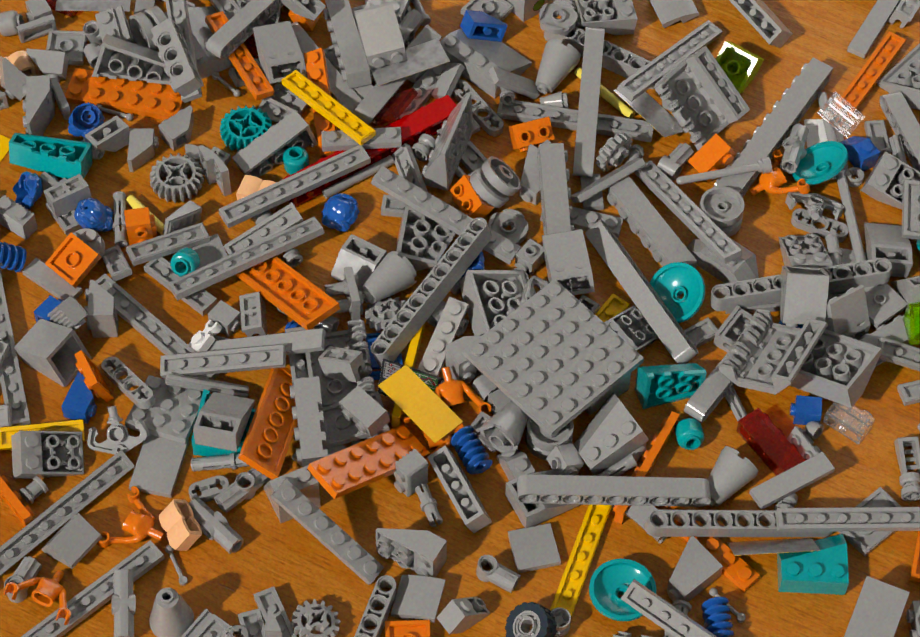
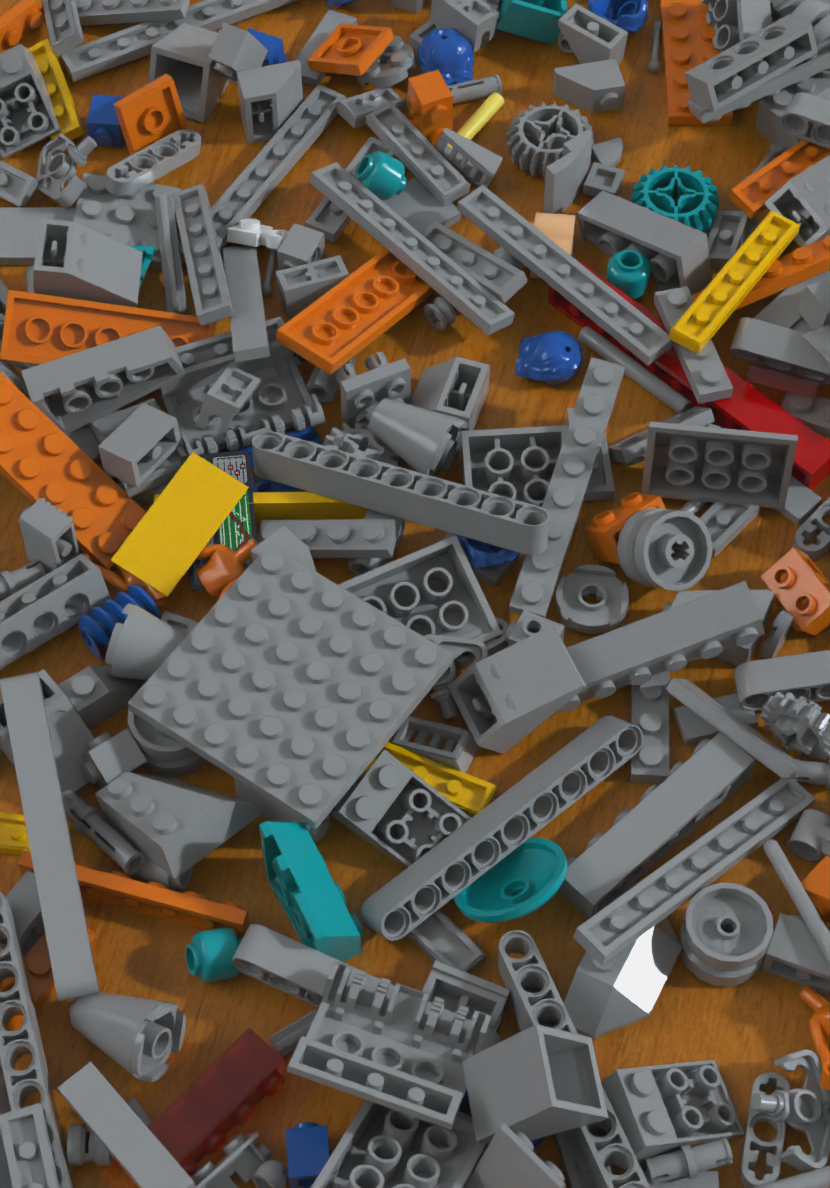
camera: 80 degrees right, 0 degrees up
(178, 128) = (646, 122): light grey slope -> none

